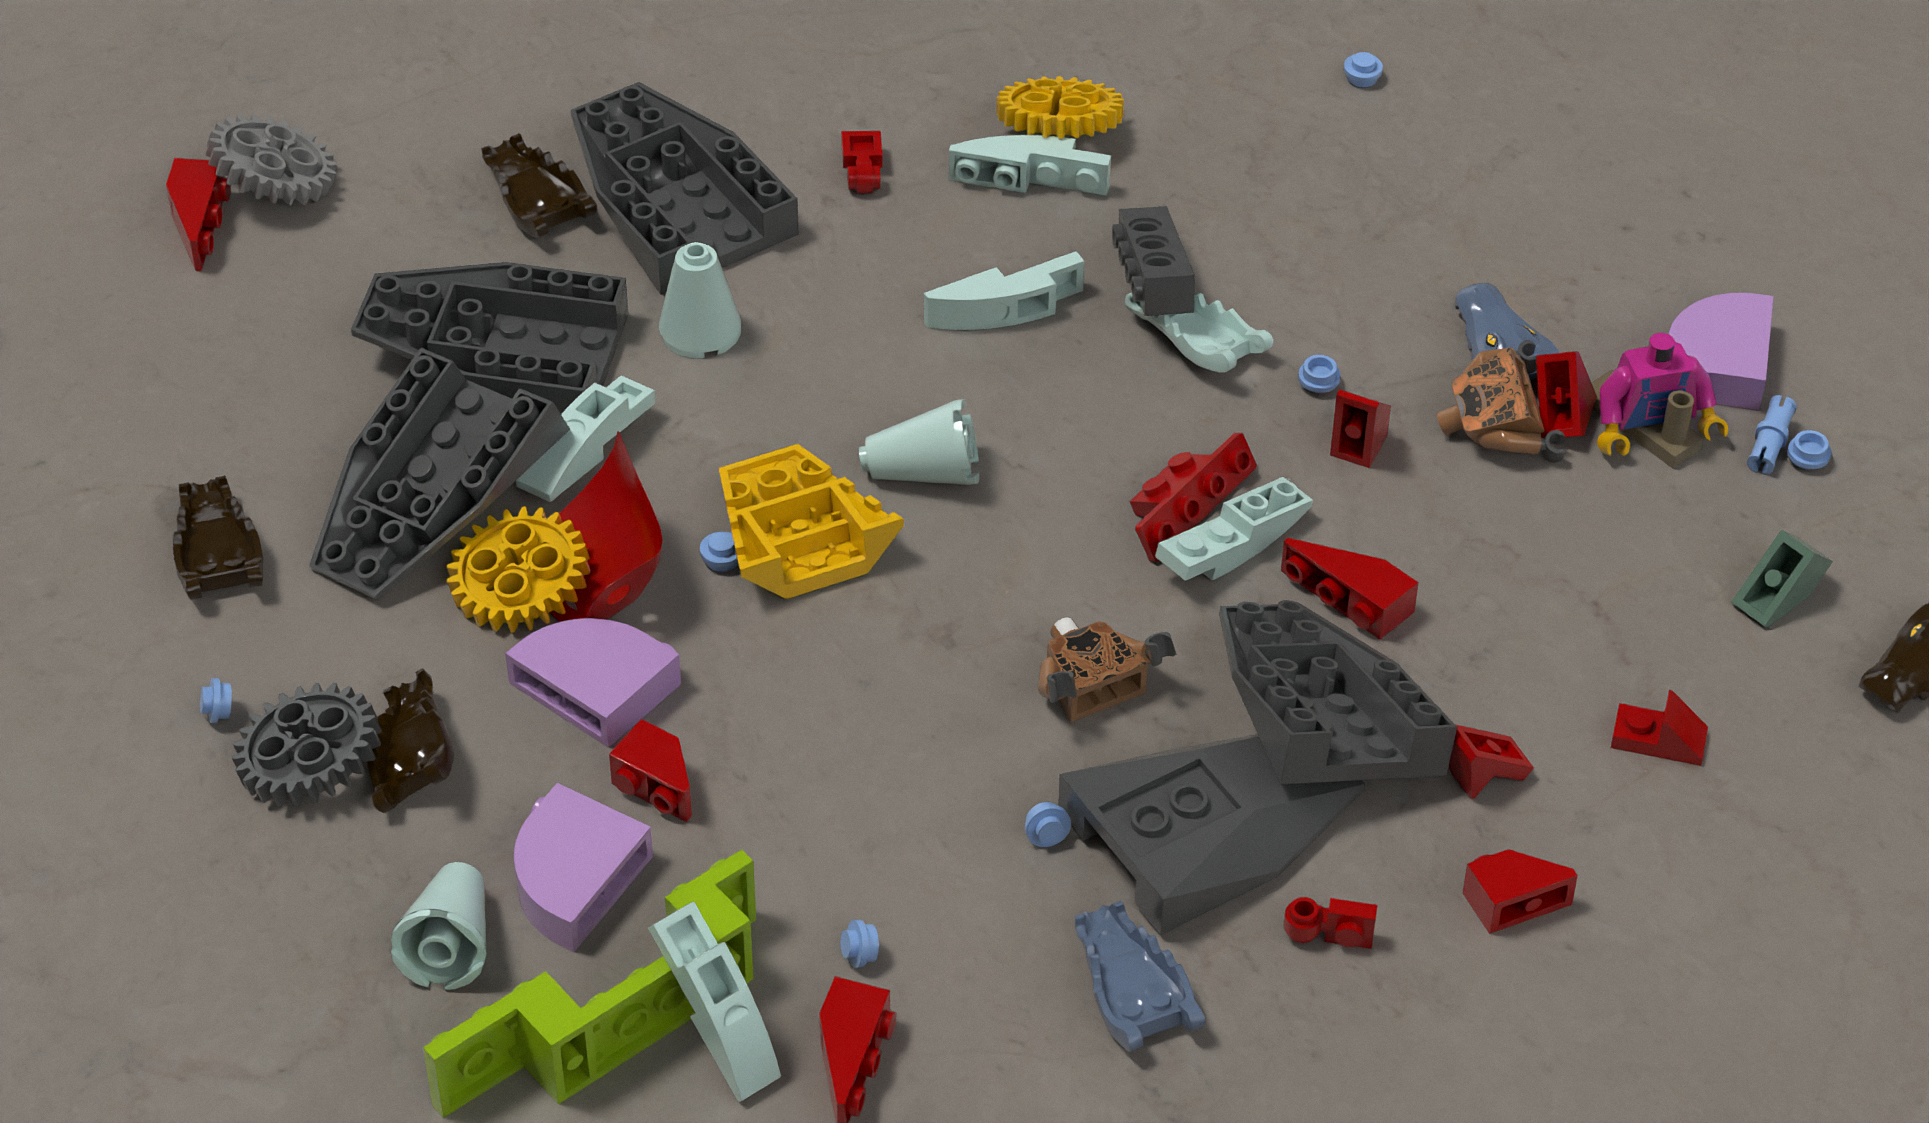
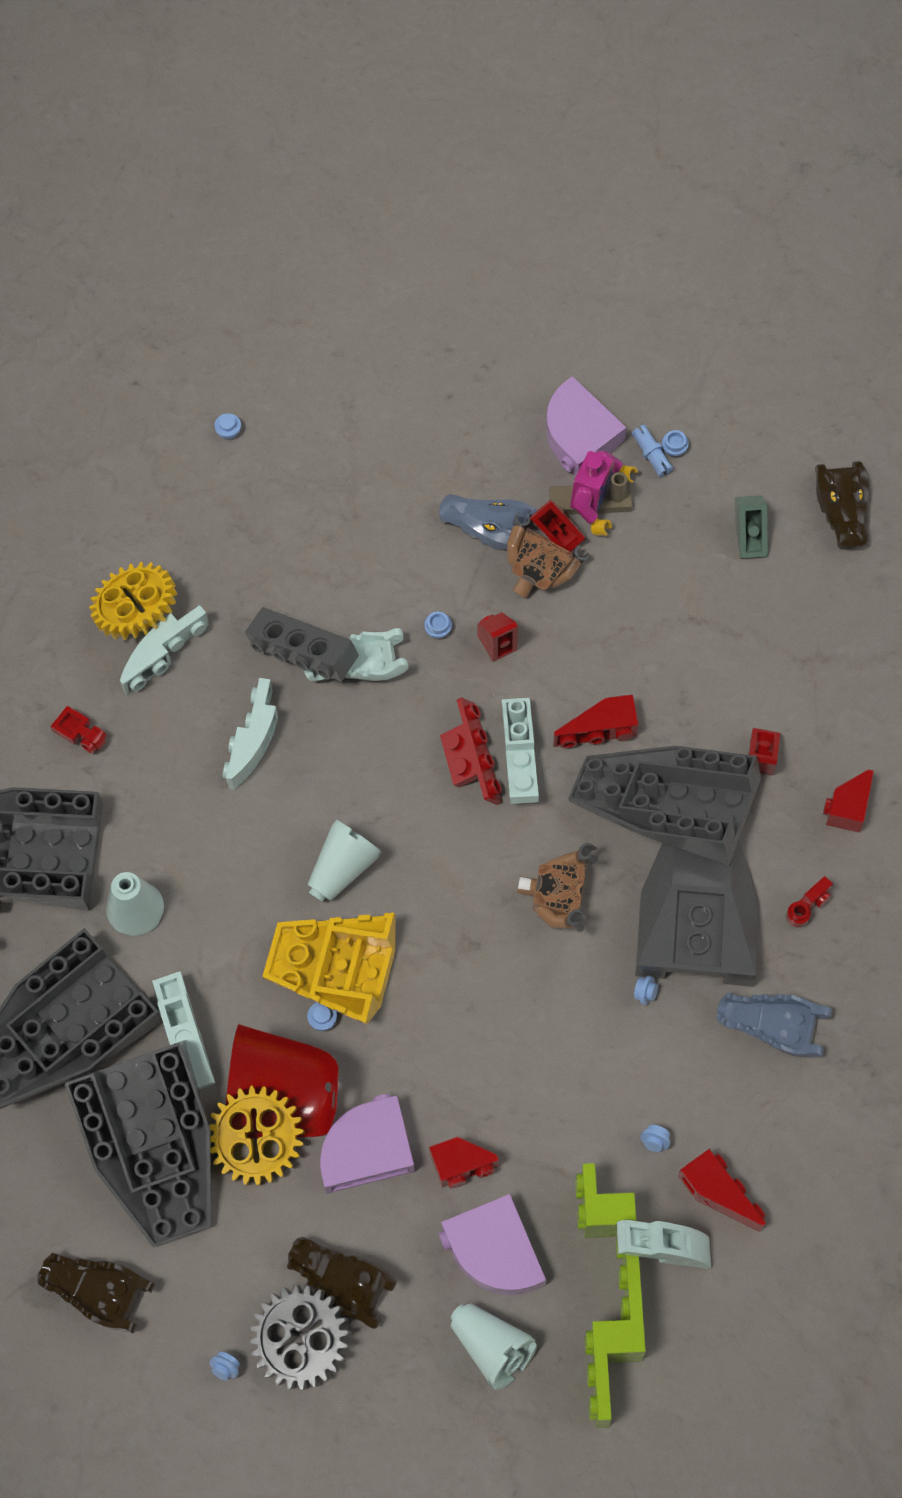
camera: 50 degrees left, 20 degrees up
(1669, 734) = (799, 658): red slope -> none

